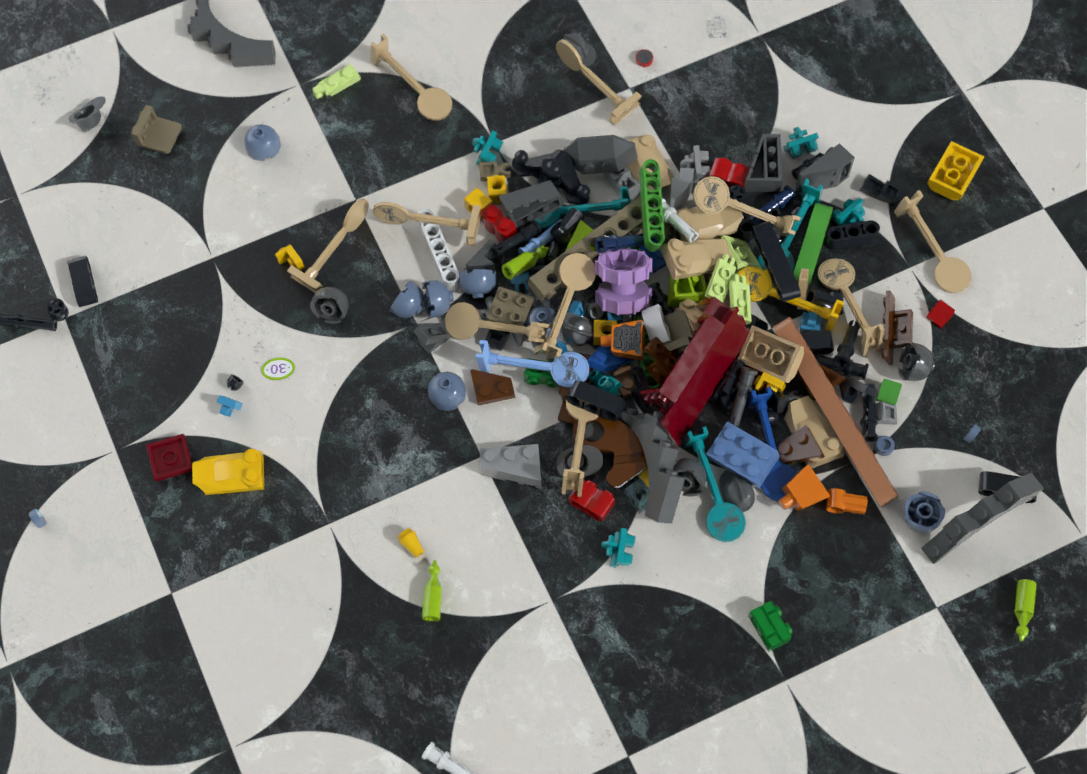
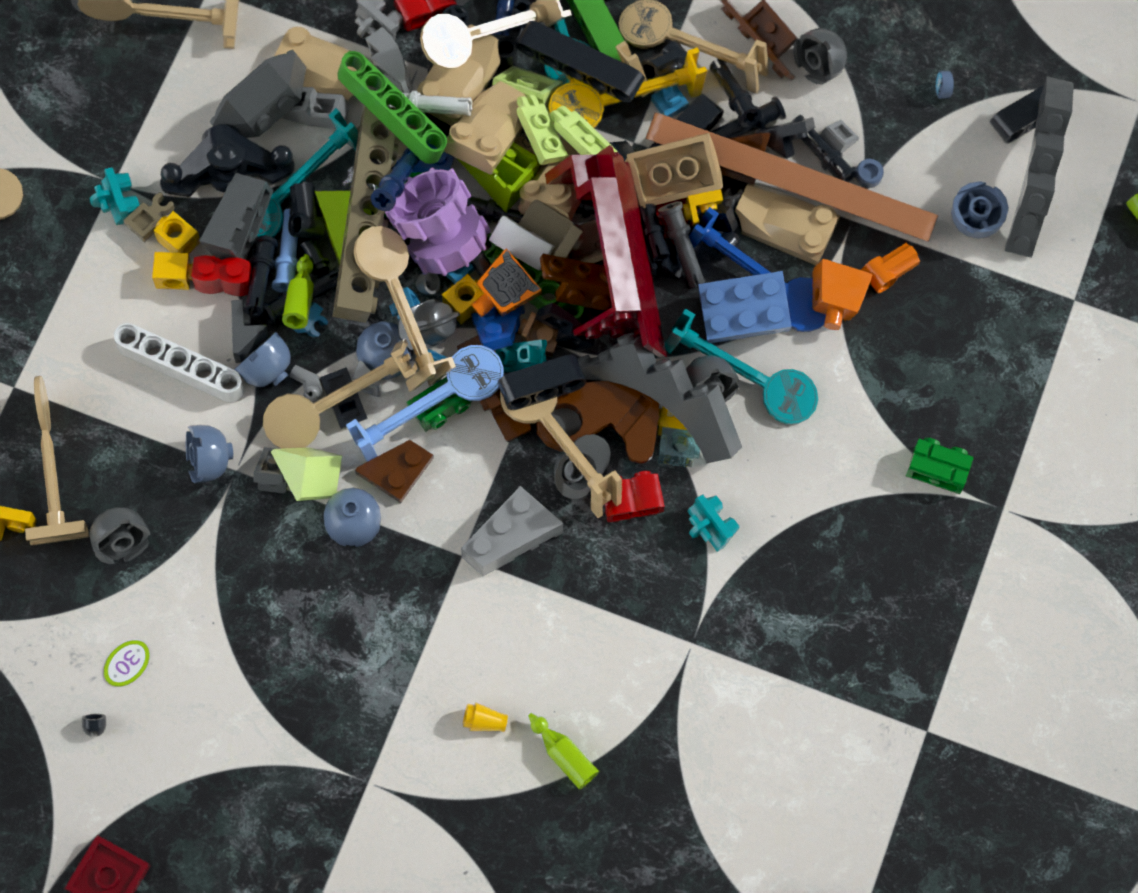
camera: 50 degrees left, 5 degrees up
(228, 405) = (114, 754): dark azure tile -> none
(230, 472) = (196, 829): yellow slope -> none
(396, 214) = (93, 360): tan piece -> none
(436, 298) = (238, 421): sand blue cylinder -> none
(444, 350) = (309, 471): none -> yellowish green slope
(510, 307) = (334, 359): dark tan bracket -> none
(736, 491) = (768, 353): dark grey piece -> none
(799, 447) = (793, 248): wing -> none
(889, 392) = (822, 109): bright green slope -> none

